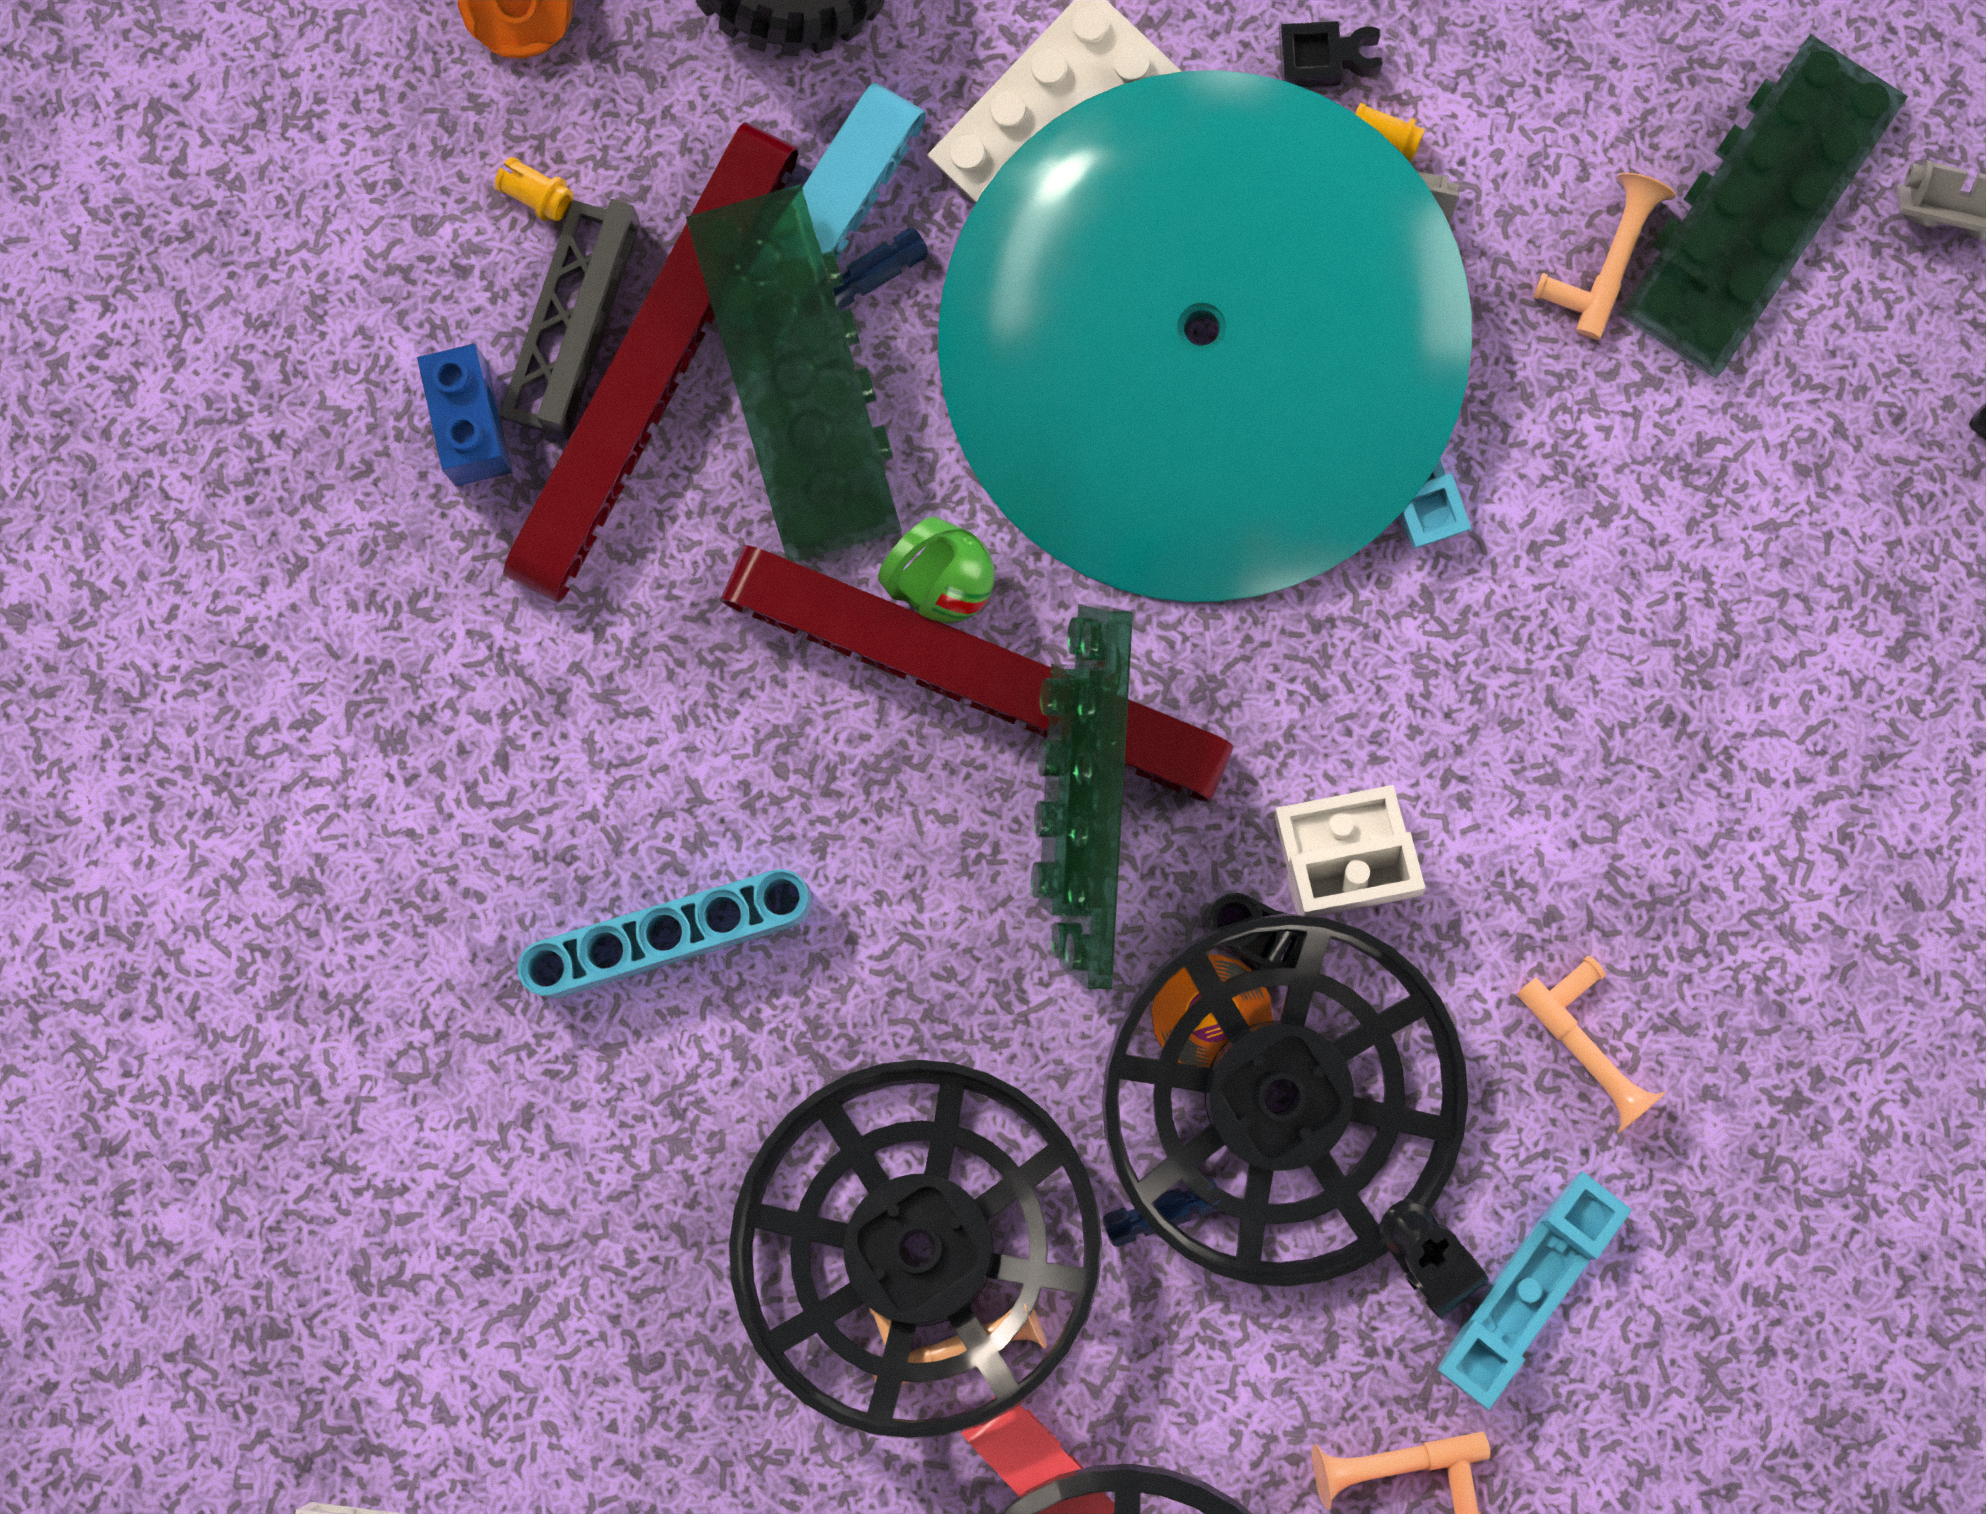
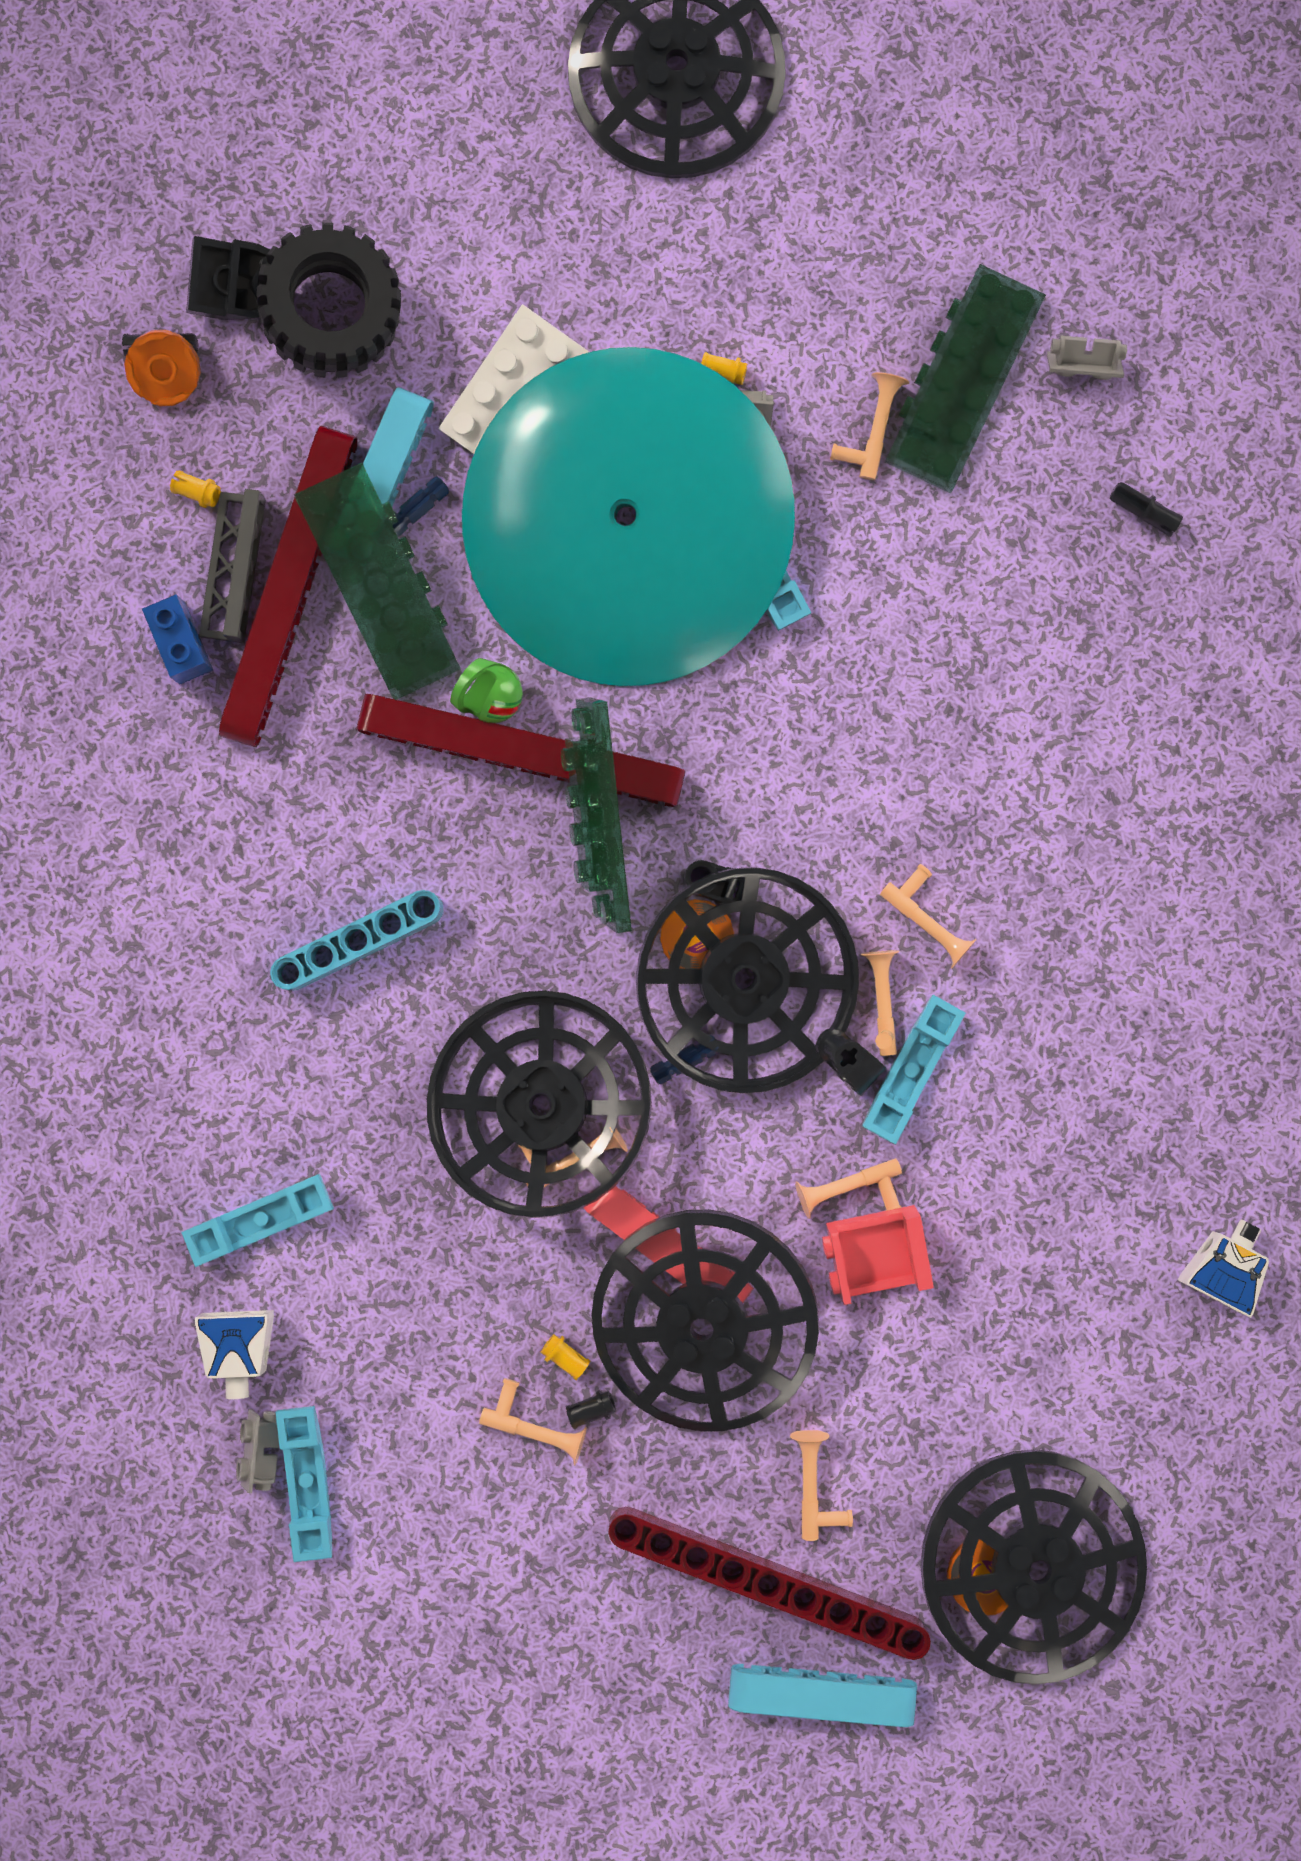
camera: 10 degrees left, 5 degrees up
(427, 1364) = (257, 1220): none -> medium azure slope
(1316, 53) = (673, 325): black plate -> none
(1348, 852) = (764, 824): white brick -> none
(1503, 1108) = (880, 963): none -> light nougat piece

